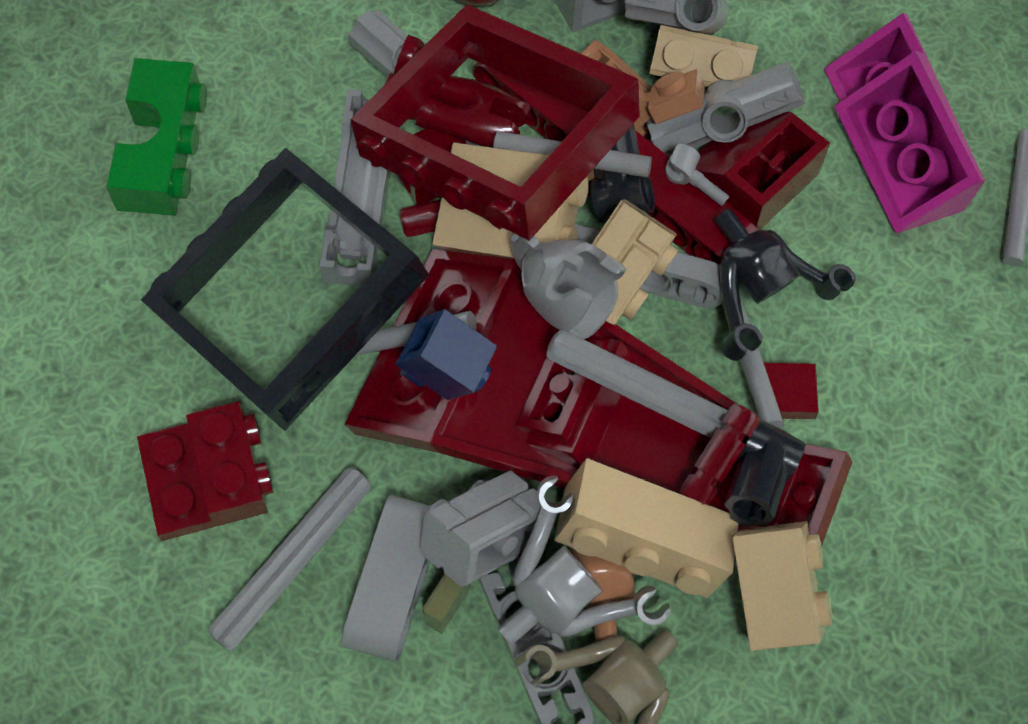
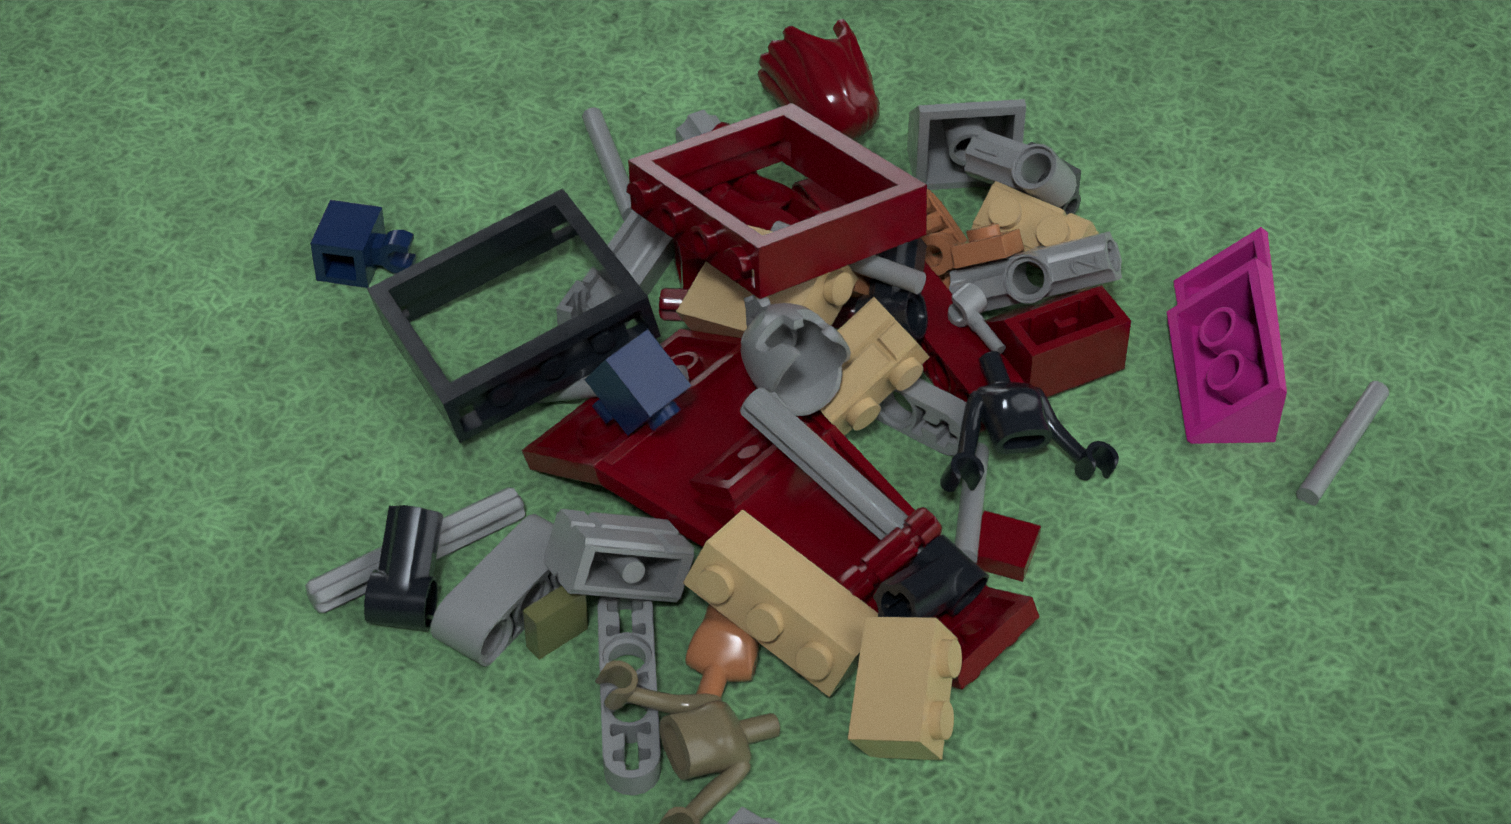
camera: 20 degrees right, 20 degrees down
(102, 242) = (354, 242): none -> dark blue brick
(154, 173) = (467, 151): green arch -> none
(205, 471) = (366, 455): dark red plate -> none
(298, 80) = (608, 158): none -> light grey bar
(298, 605) = (403, 585): none -> black piece
(563, 587) = (672, 625): light grey piece -> none

